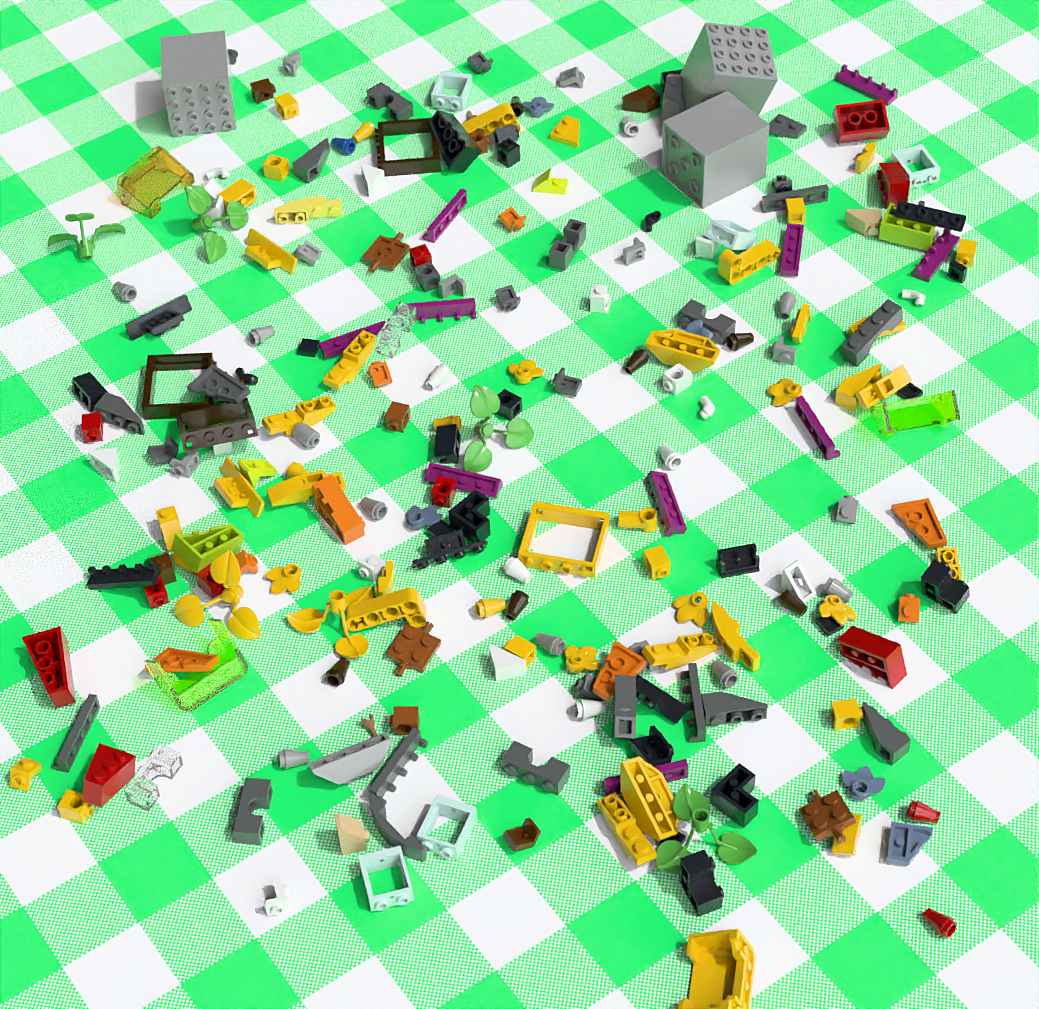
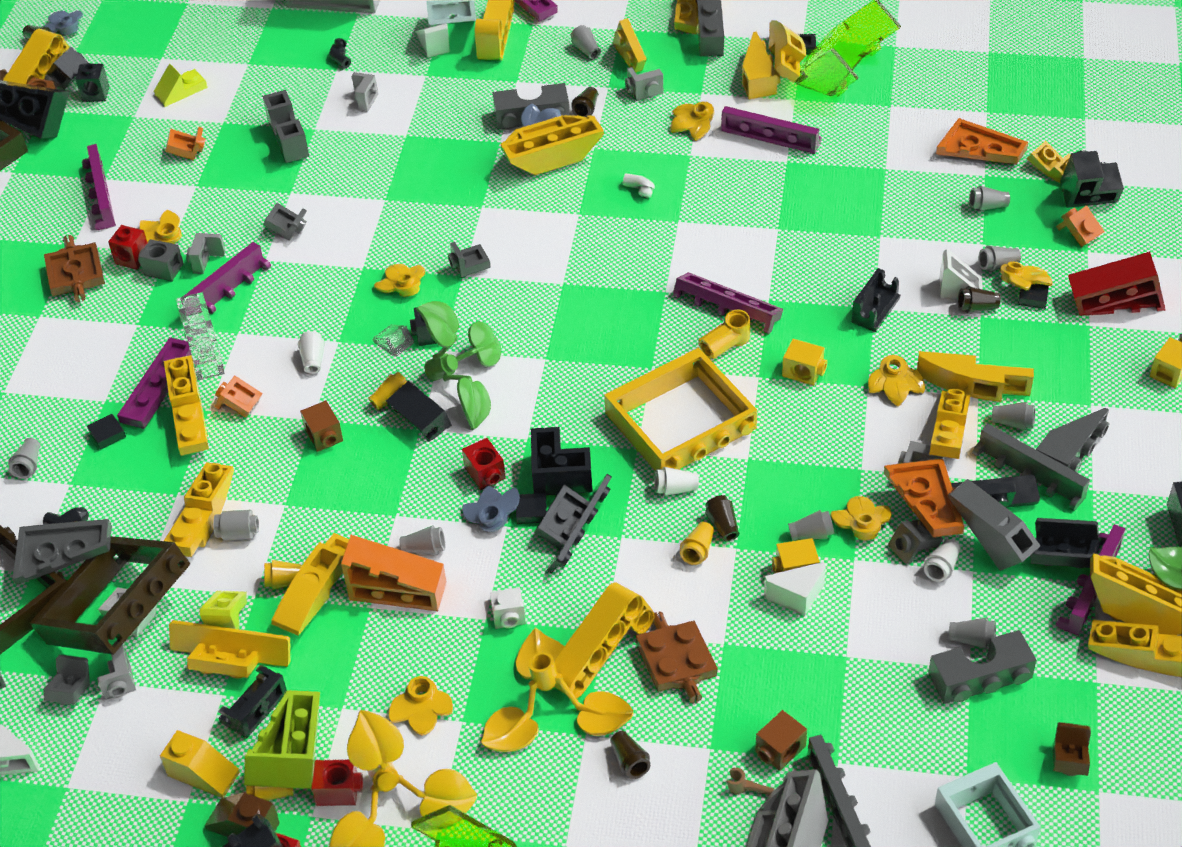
camera: 45 degrees left, 0 degrees up
(234, 518) = (254, 703): none -> black hinge
(247, 562) = (338, 732): orange bracket -> none
(386, 582) = (554, 614): yellow slope -> none
(448, 261) = (164, 230): none -> yellow plate
(465, 480) = (498, 429): magenta hinge -> none
(556, 750) = (973, 632): none -> light grey cone
(567, 131) = (131, 27): yellow wing -> none
(600, 299) = (390, 156): brick -> none
(636, 361) = (509, 188): dark brown cone -> none
(670, 456) = (670, 253): white cone -> none
(677, 379) = (576, 177): white brick -> none
(847, 509) = (903, 179): light grey bracket -> none
(878, 554) = (986, 198): none -> light grey cone

